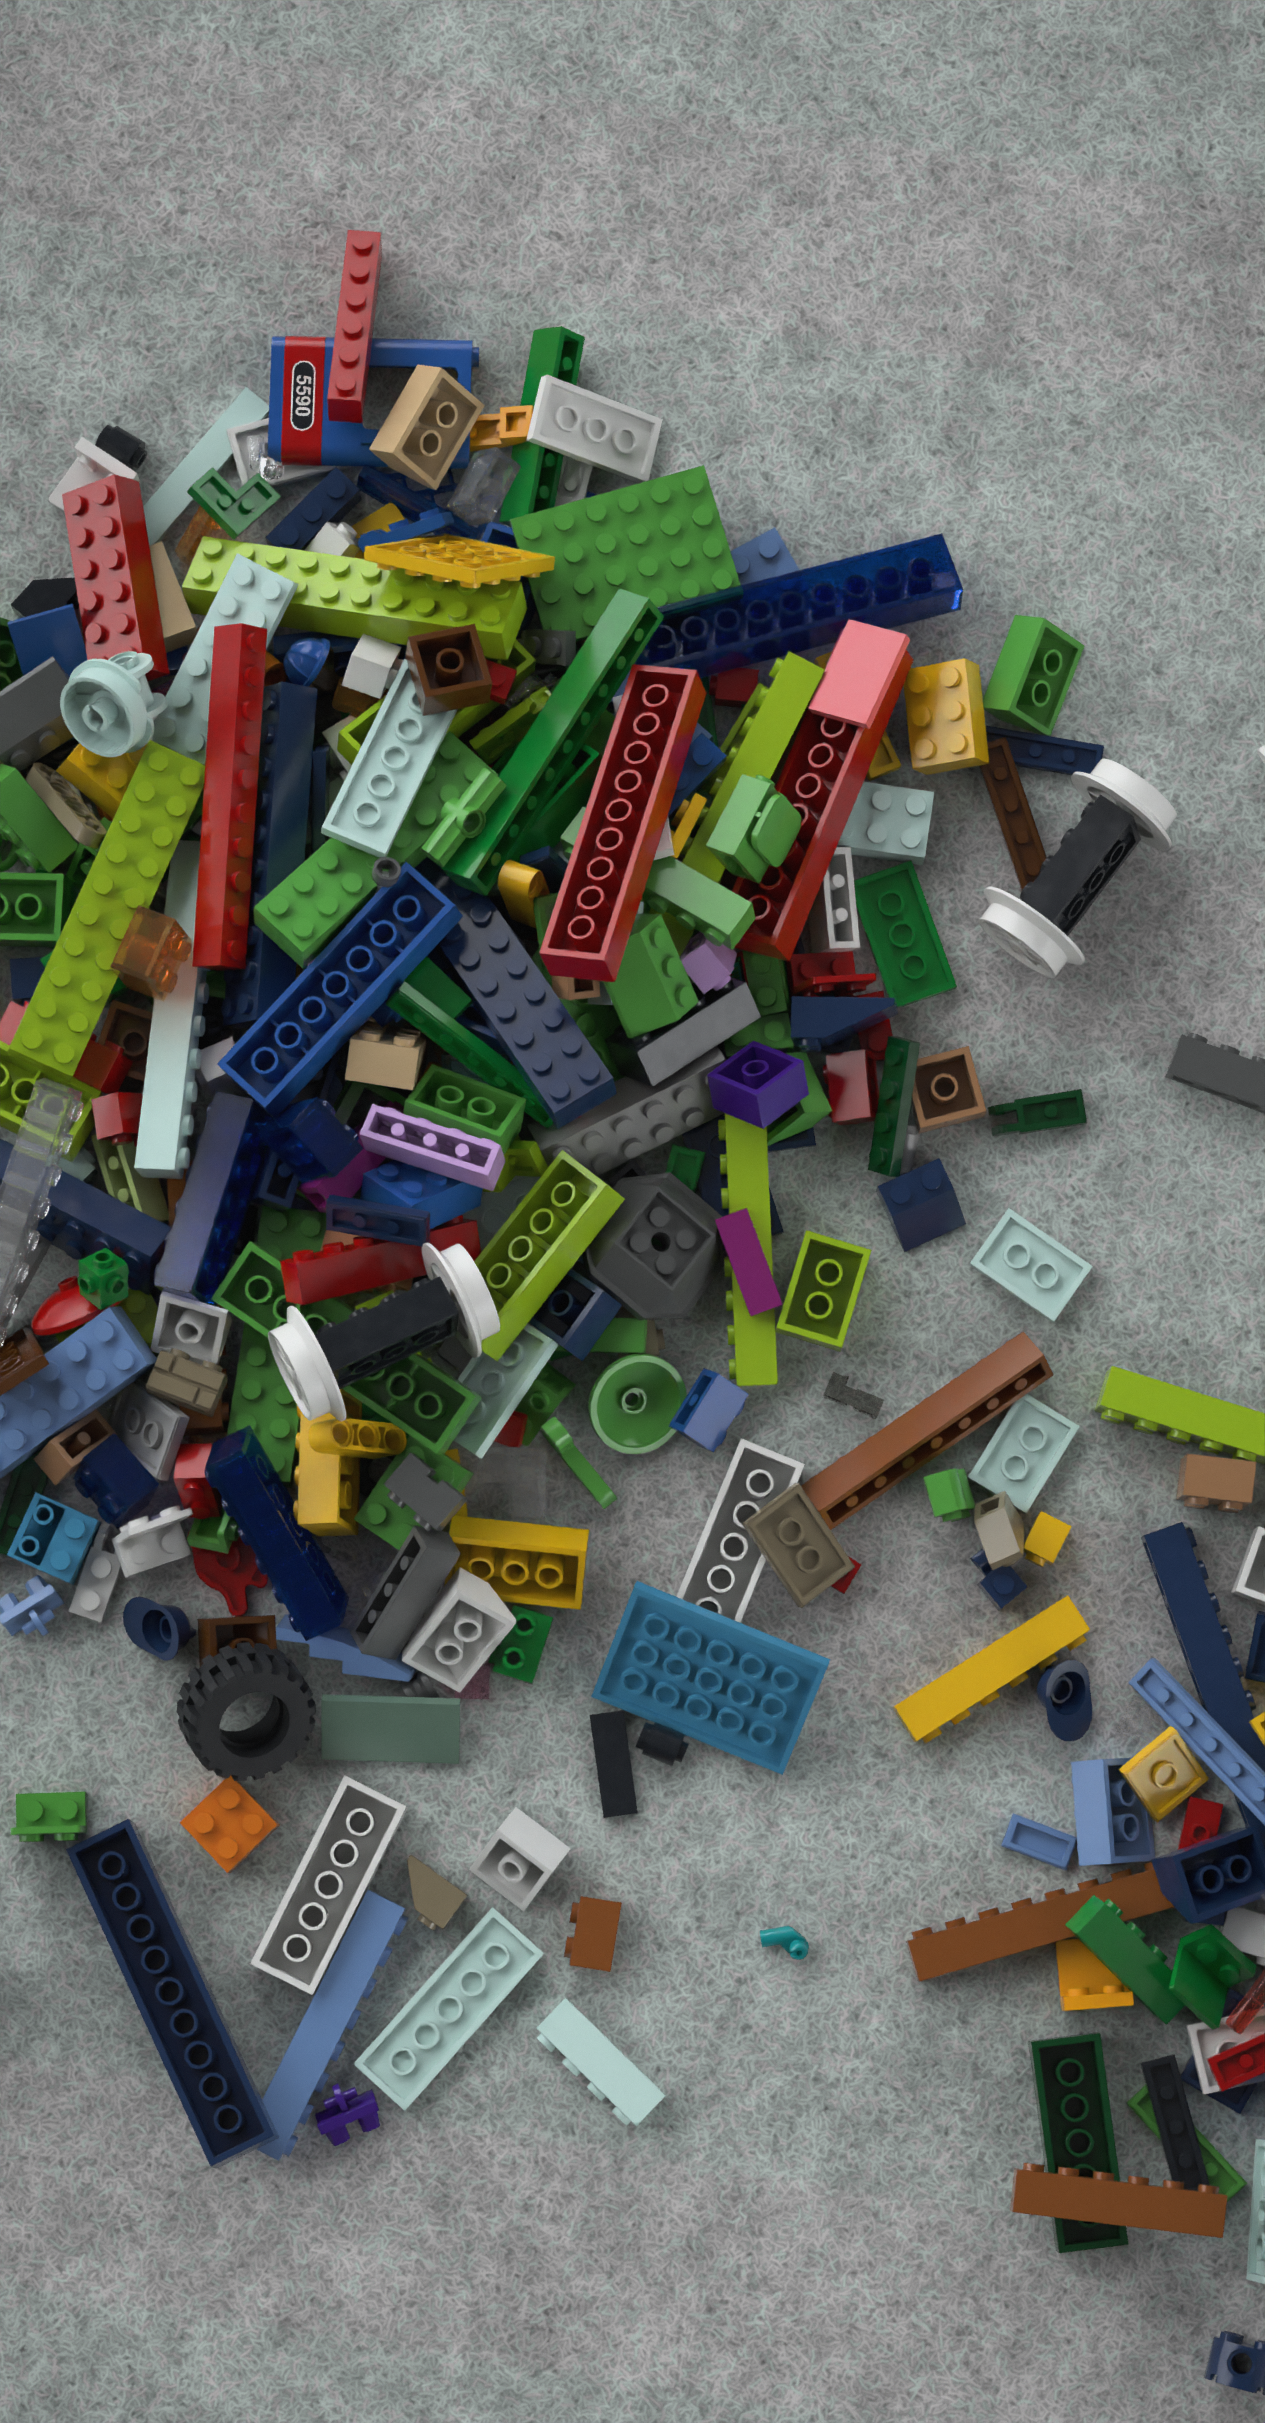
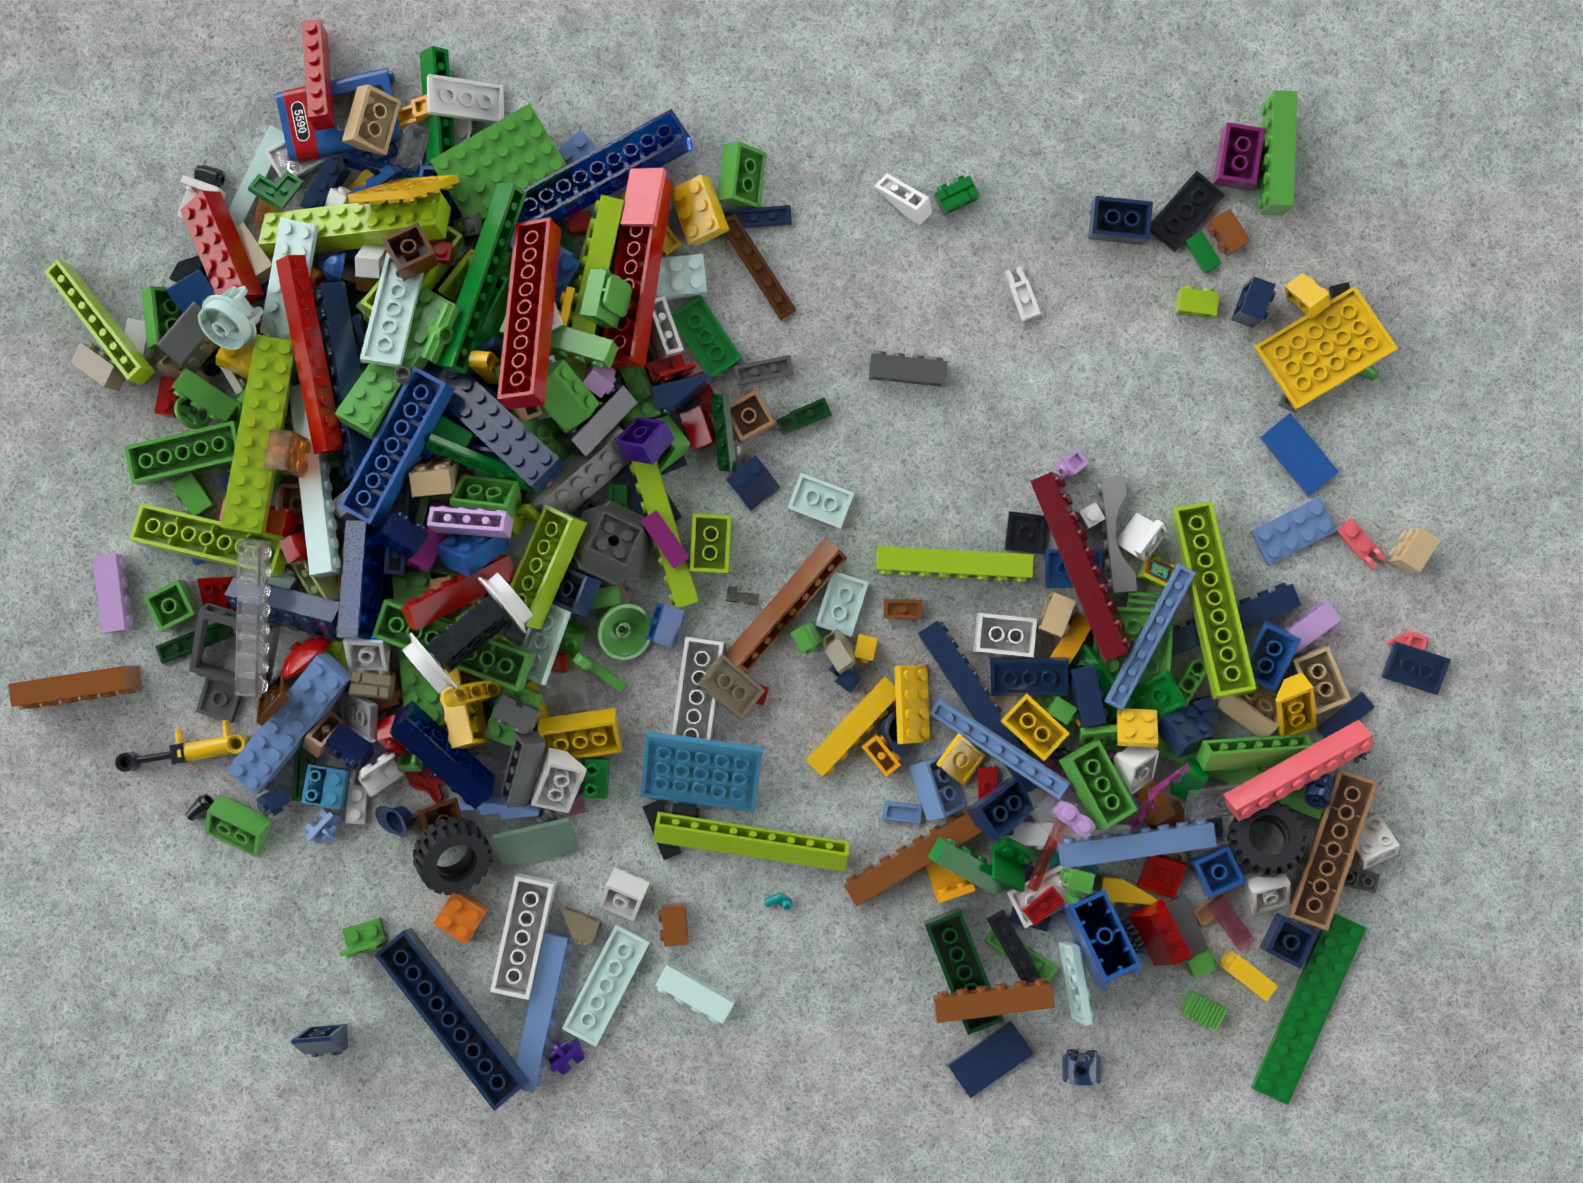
camera: 10 degrees left, 5 degrees up
(66, 805) = (223, 382): dark tan beam -> none
(103, 1278) = (309, 640): green brick -> none
(377, 1220) = (450, 571): dark blue tile -> none
(765, 1822) = (751, 841): none -> lime brick
(988, 1016) = (763, 370): none -> dark grey plate
(1027, 1730) = (880, 754): none -> light orange brick
(1086, 2312) = (990, 1059): none -> dark blue tile
(1103, 1655) = (912, 704): none -> yellow plate
(1117, 817) = (806, 242): brick -> none
(1126, 1488) = (902, 609): none -> dark orange plate
(1216, 1482) = (950, 593): medium nougat brick -> none

